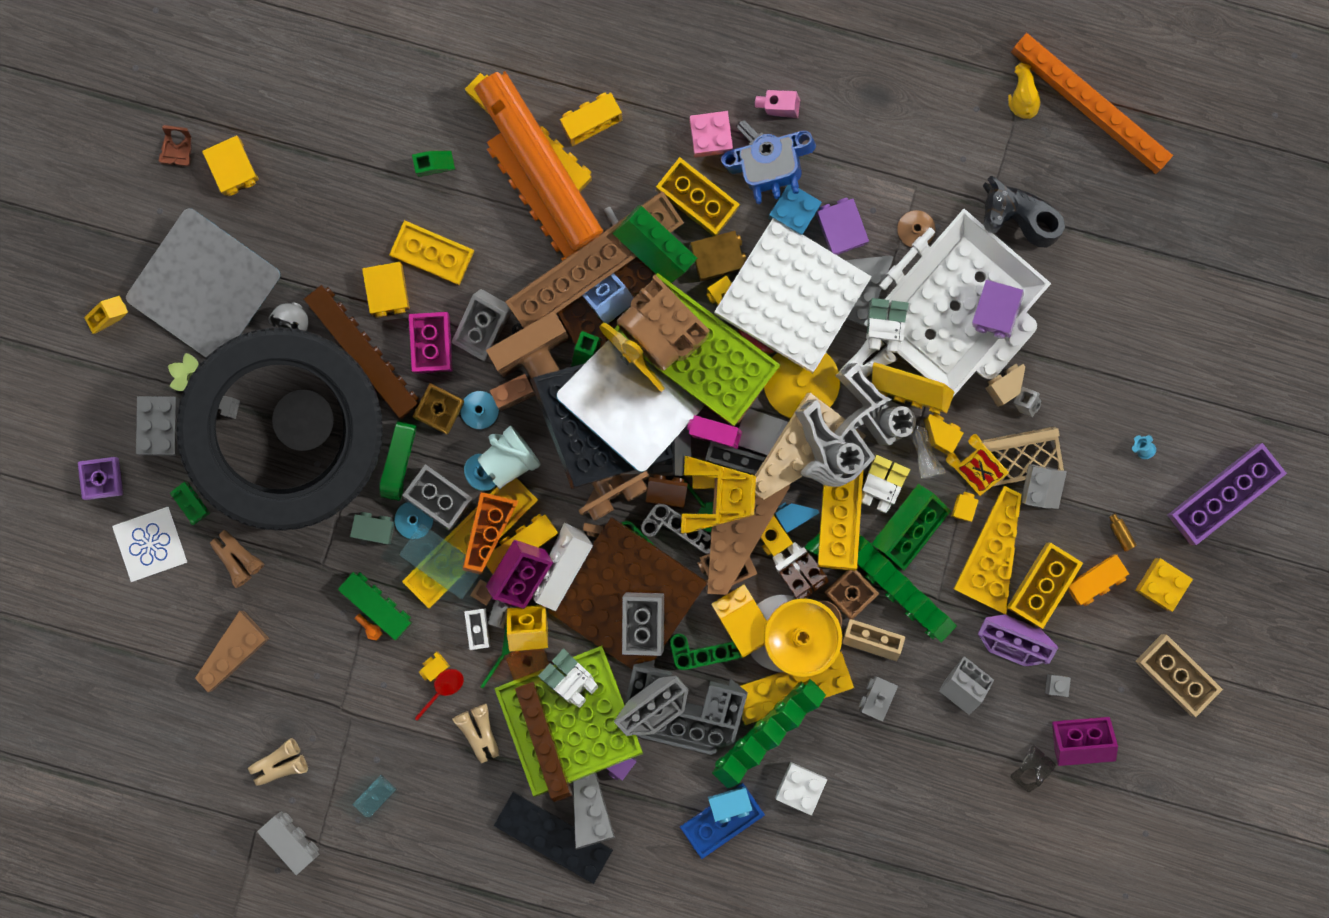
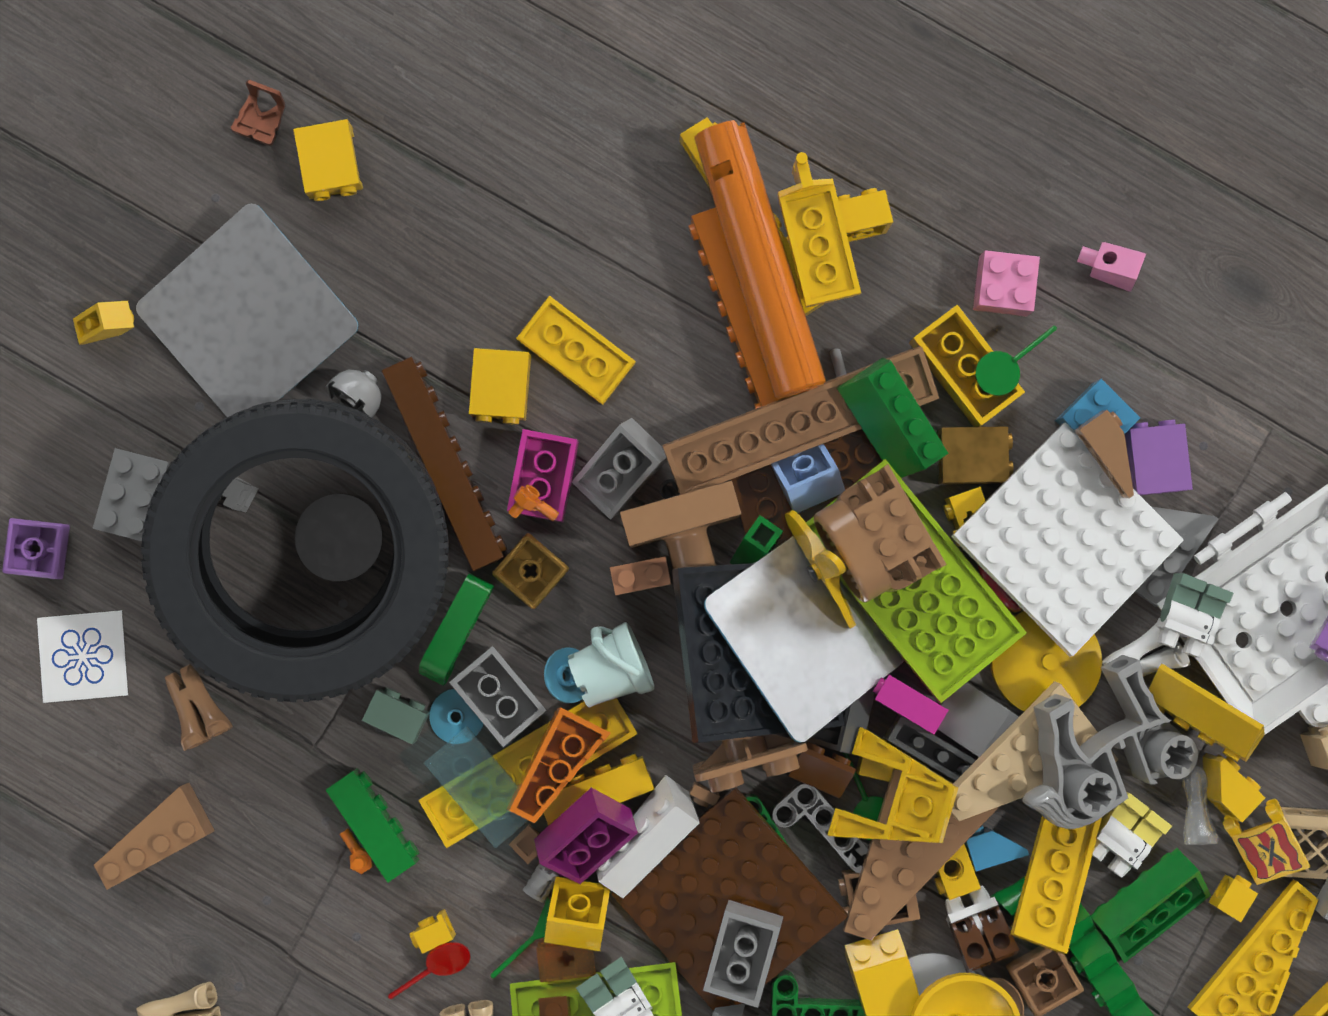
camera: 15 degrees right, 0 degrees up
(182, 372) = (189, 427): yellowish green plate -> none
(189, 502) = (145, 613): green hinge -> none
(424, 360) = (528, 499): none -> orange piece
(433, 162) = (609, 225): green slope -> none
(477, 629) = (507, 895): white brick -> none
(489, 410) = (597, 596): medium azure dish -> none
(573, 136) = (818, 237): none -> yellow hinge
(718, 194) = (999, 371): none -> green piece
(773, 169) = (1086, 341): piece -> none
(801, 225) = (1108, 447): none -> medium nougat slope
(906, 226) = (1245, 485): medium nougat dish -> none

